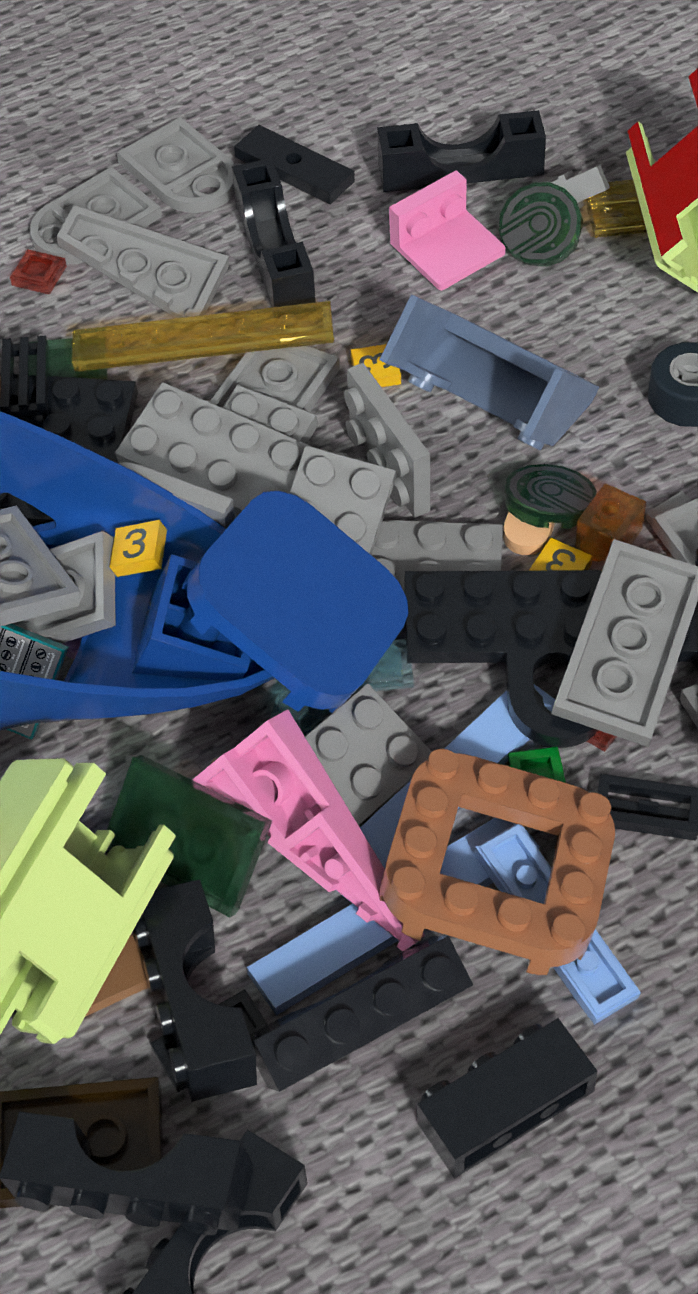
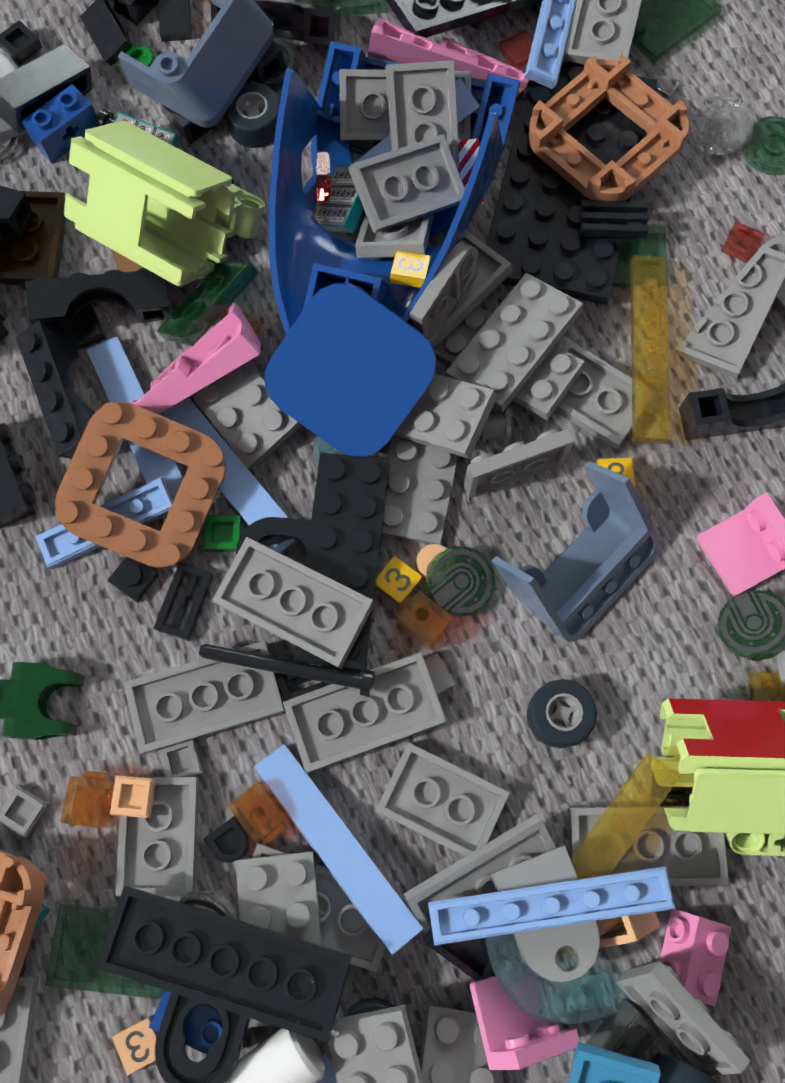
camera: 95 degrees right, 20 degrees up
(631, 877) = (133, 578): none -> black plate

